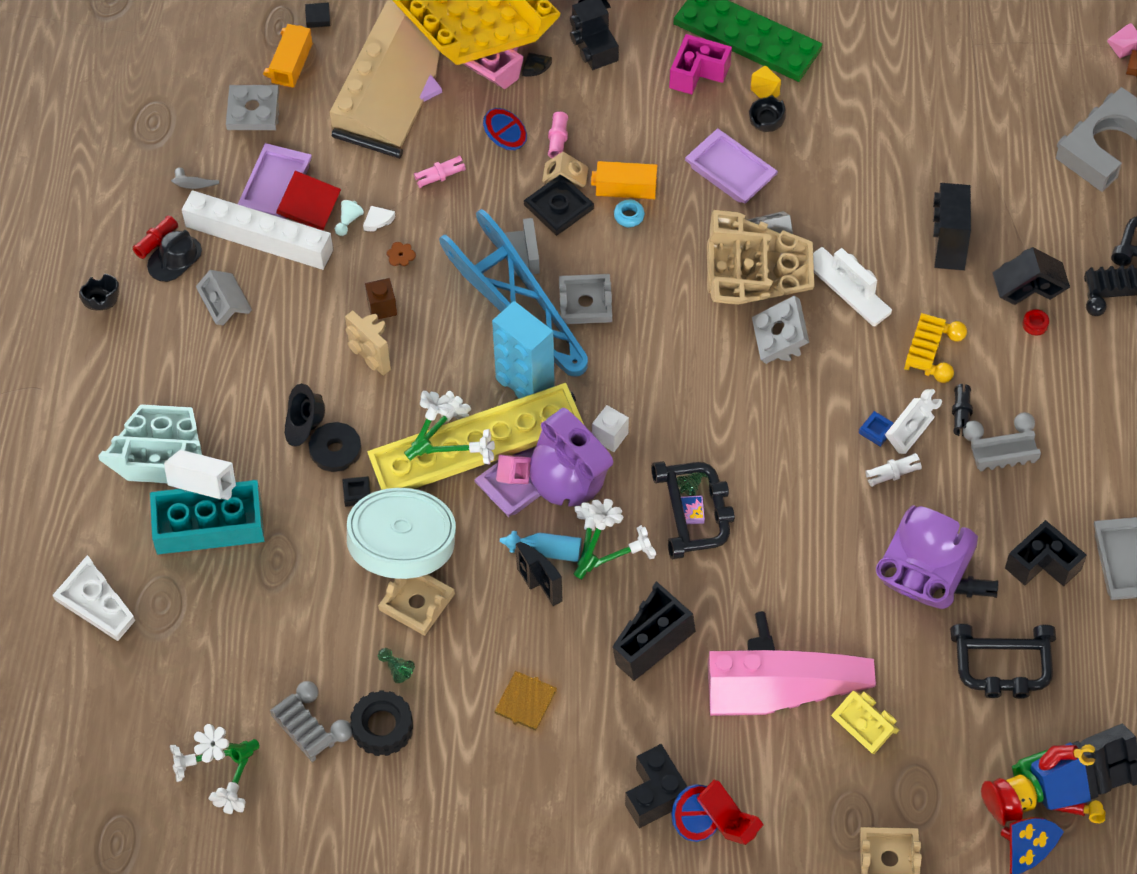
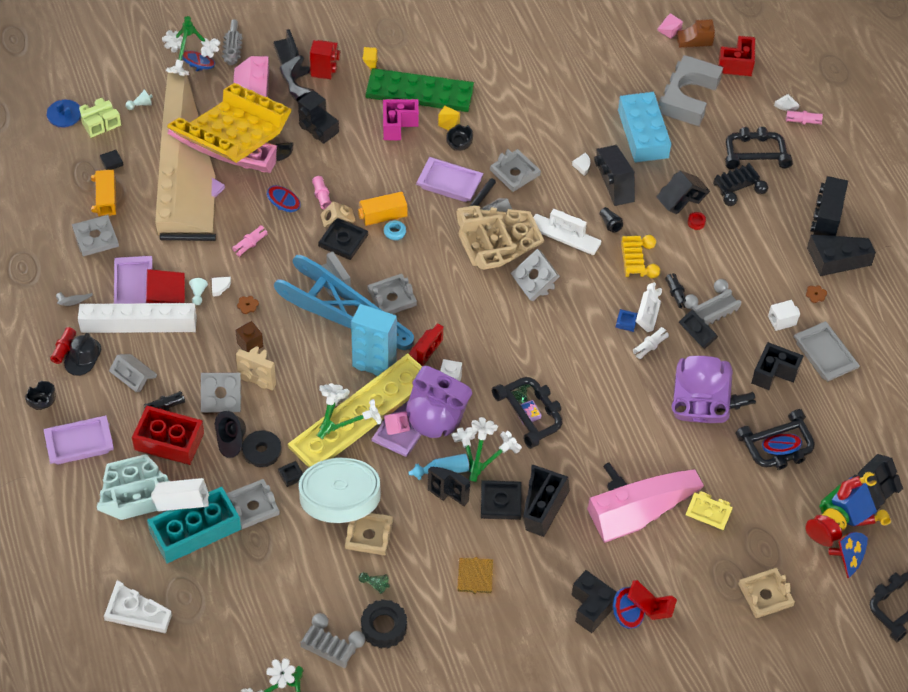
camera: 25 degrees left, 5 degrees down
(121, 363) = (78, 440): none -> lavender piece
(226, 392) = (168, 435): none -> red brick
(242, 349) = (166, 402): none -> black pin
(279, 501) = (256, 492): none -> light grey piece
(331, 357) = (233, 387): none -> light grey piece
(598, 379) = (427, 344): none -> red bracket
(602, 613) = (500, 500): none -> black tile
(765, 199) = (485, 190): none -> black bar
(824, 166) = (514, 160): none -> light grey piece
(916, 197) = (582, 164): none -> white tile
(918, 286) = (612, 221): none -> black cone
(965, 471) = (698, 329): none -> black plate
(1005, 665) = (782, 444): none -> piece
(1022, 171) = (644, 127): none -> medium azure brick
(1092, 489) = (784, 315): none -> white brick

